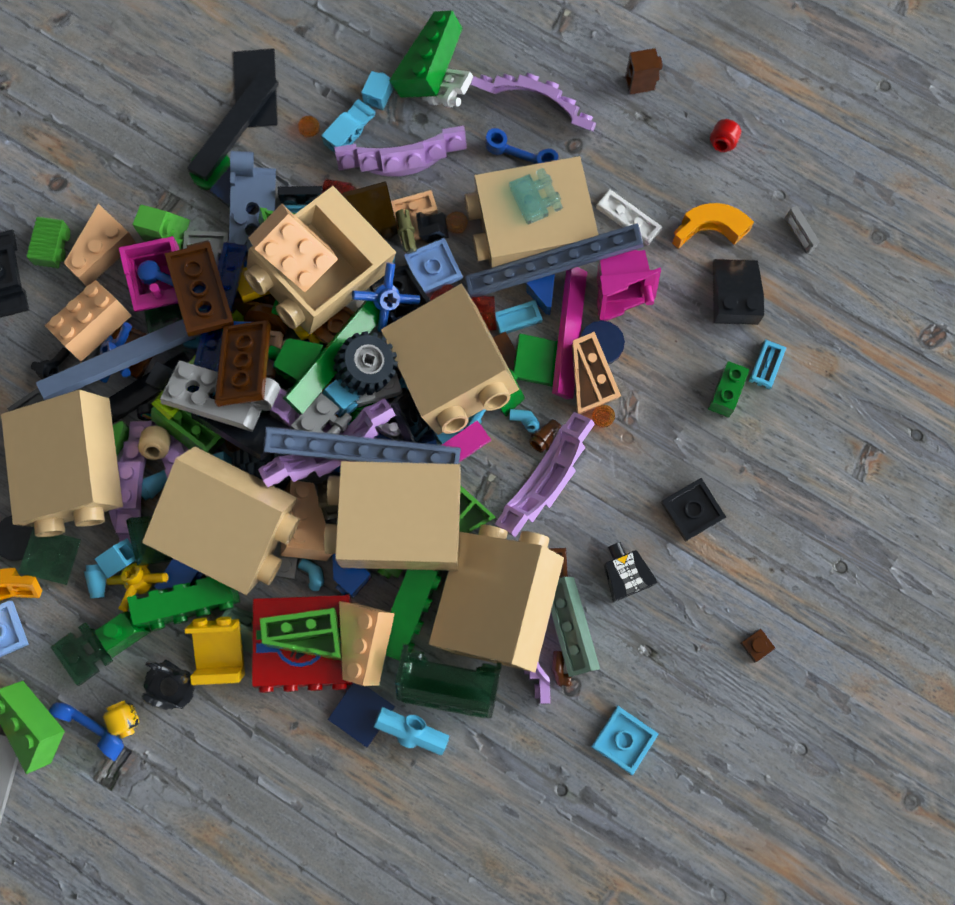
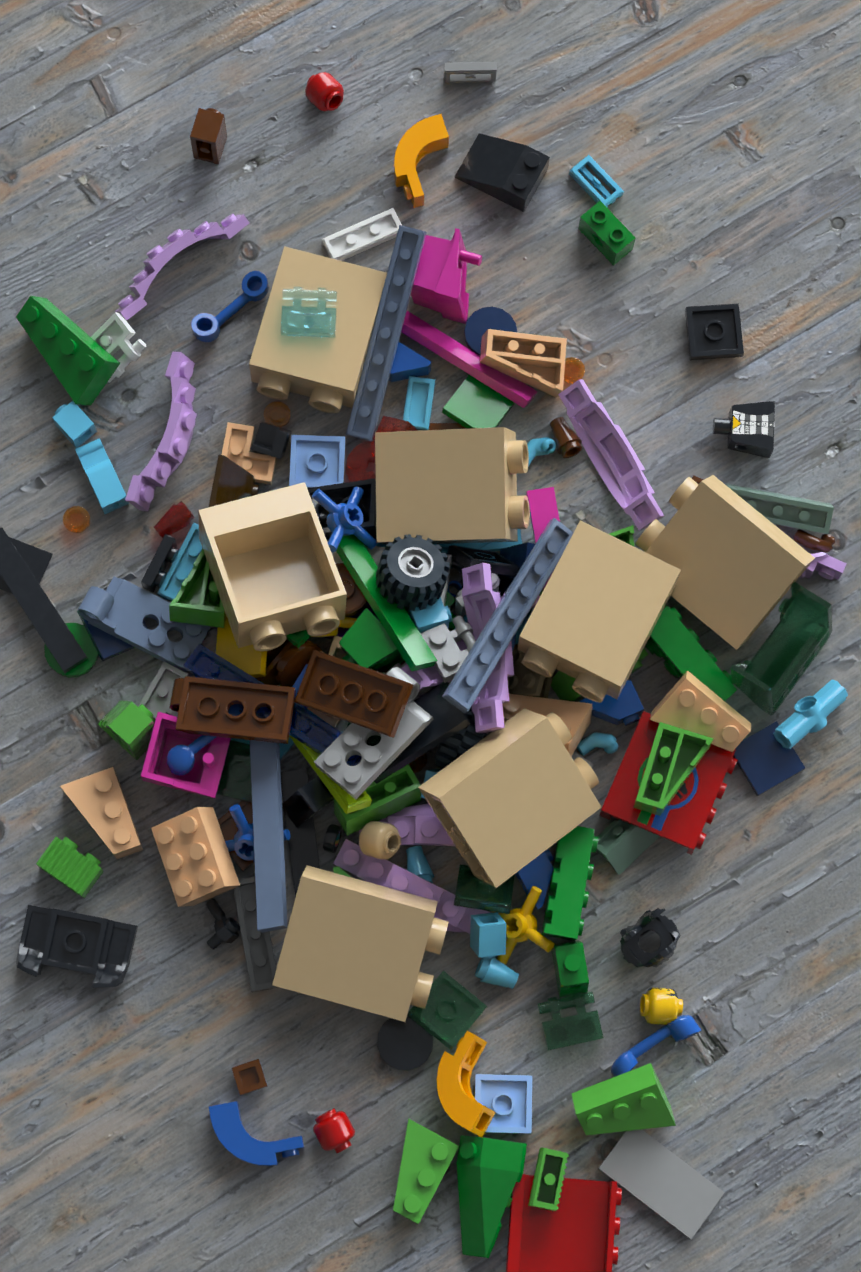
camera: 70 degrees left, 0 degrees up
(217, 651) = (637, 873): yellow panel -> none
(292, 248) = (261, 578): light nougat brick -> none
(406, 231) = (267, 469): olive axle -> none

